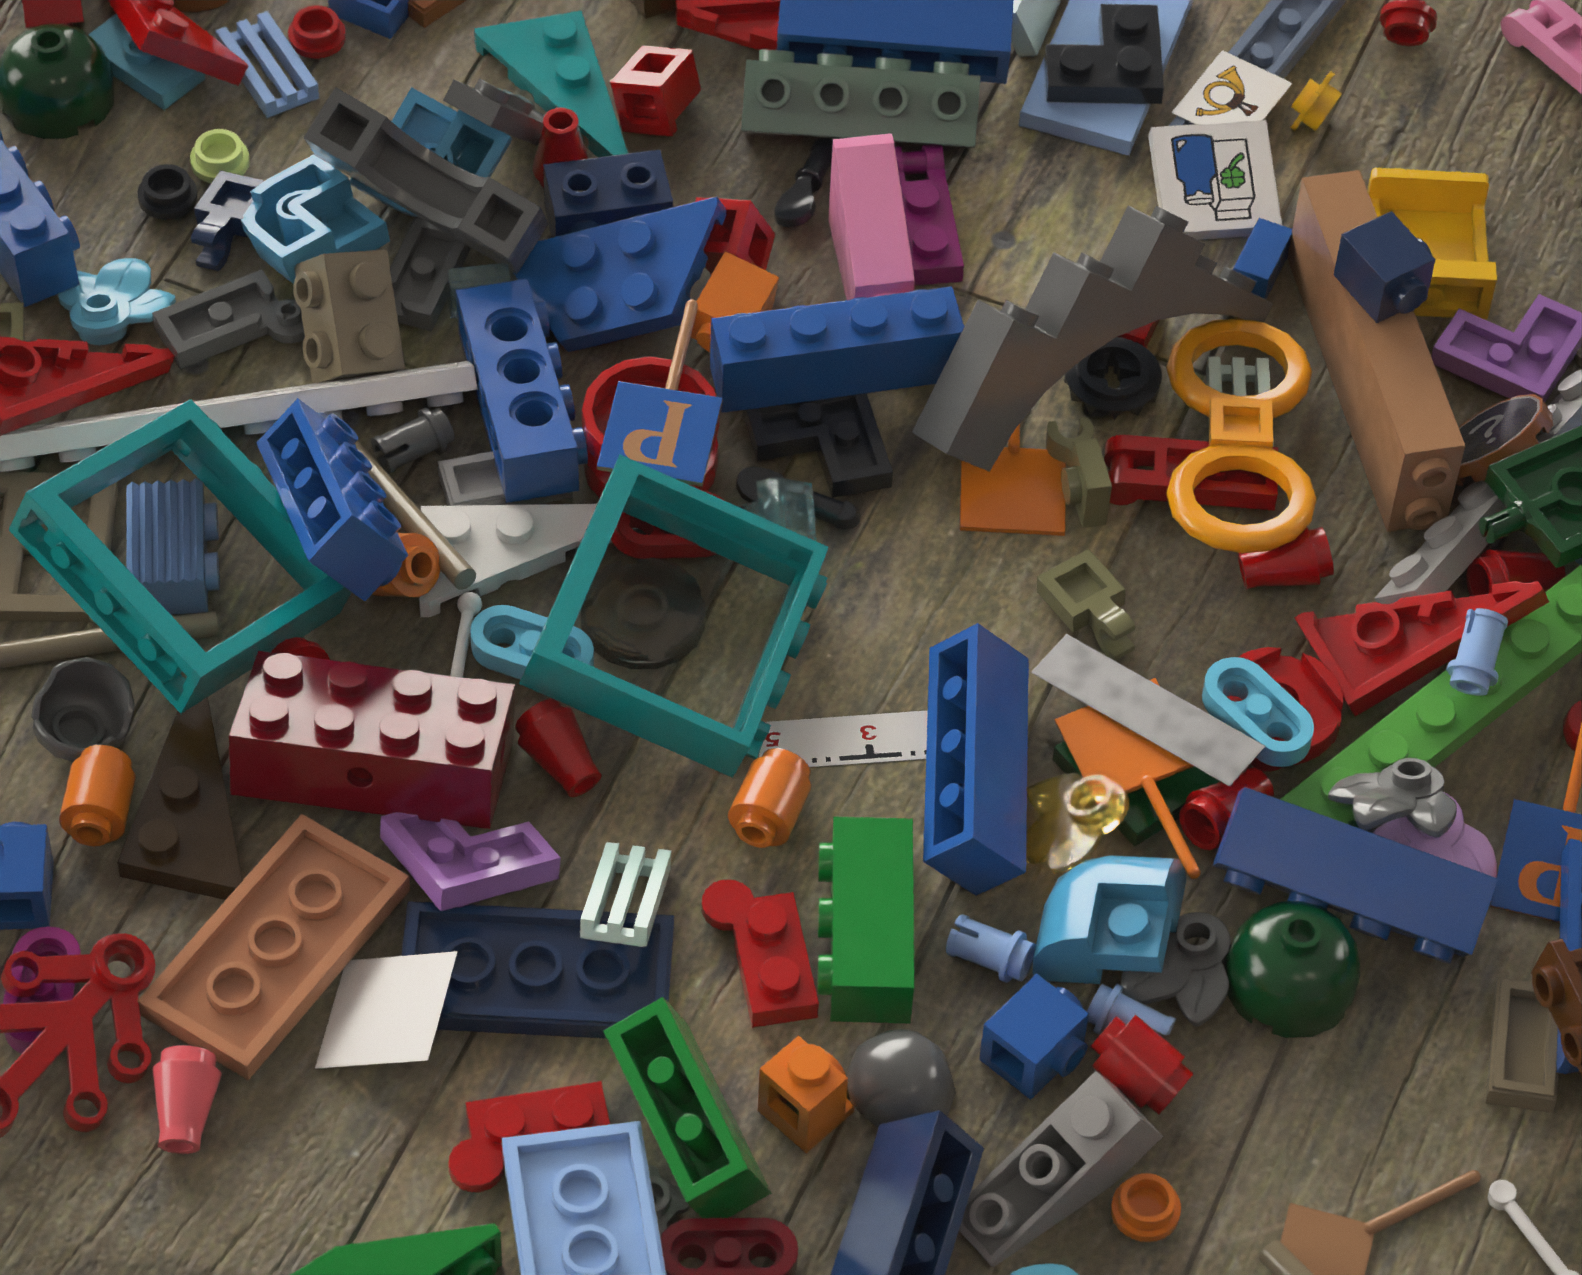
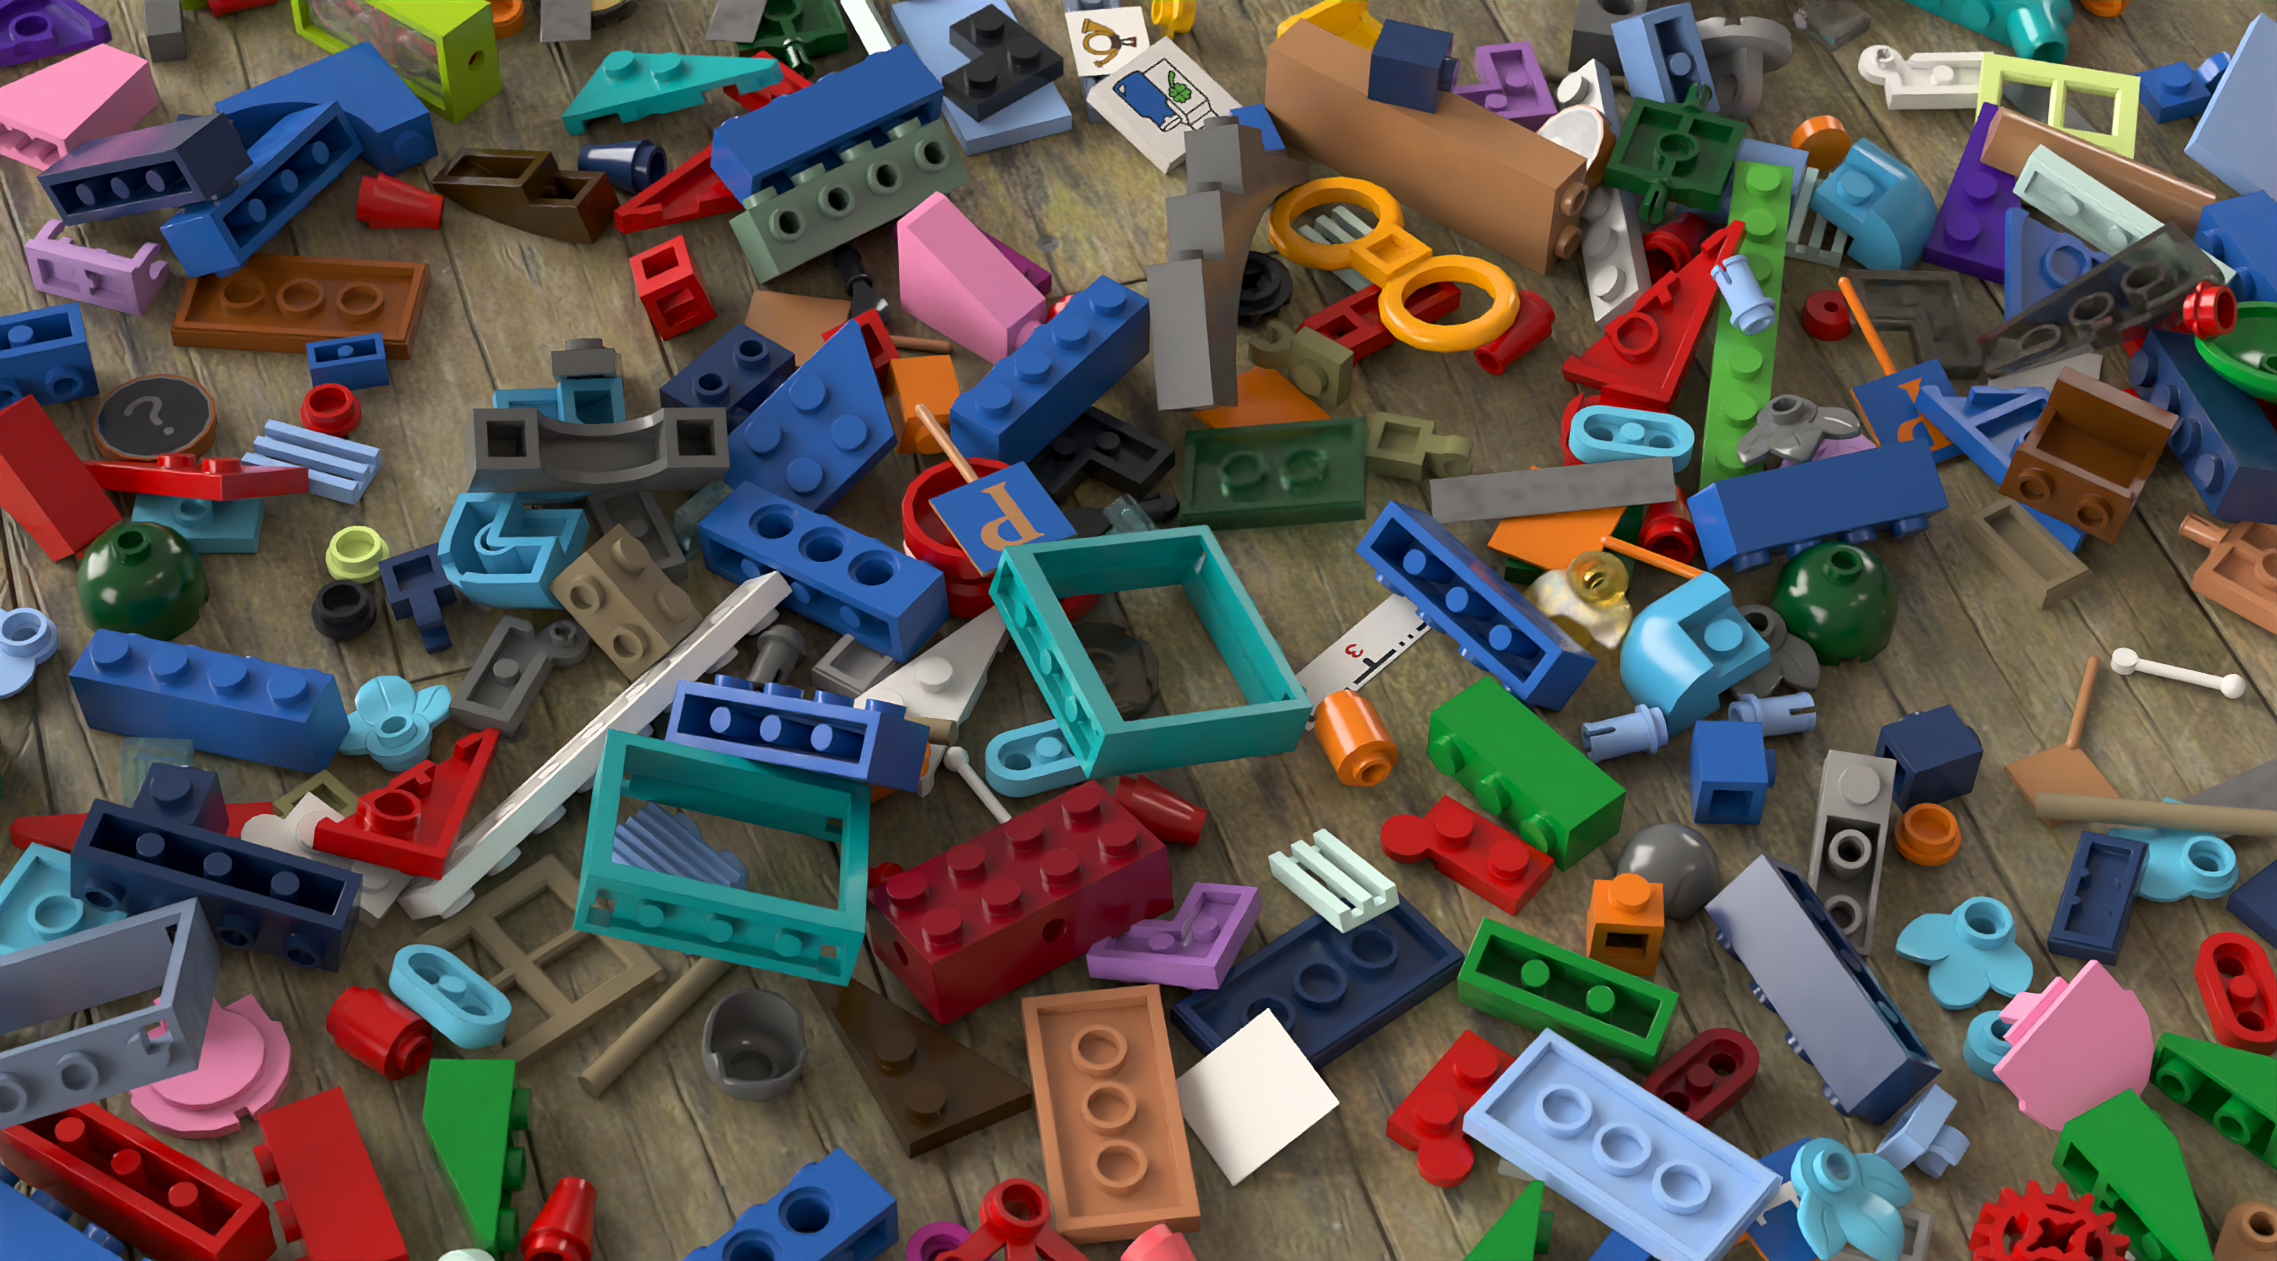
camera: 40 degrees left, 5 degrees down
(98, 796) = (836, 1103): orange brick -> none
(558, 141) = (647, 372): red cone -> none
(560, 69) = (549, 310): teal wing -> none
(735, 172) = (800, 320): none -> medium nougat piece
(952, 546) = (1275, 474): none -> clear green tile
(1140, 1063) = (1810, 729): red brick -> none
(1215, 1146) = (1933, 757): none -> dark blue brick

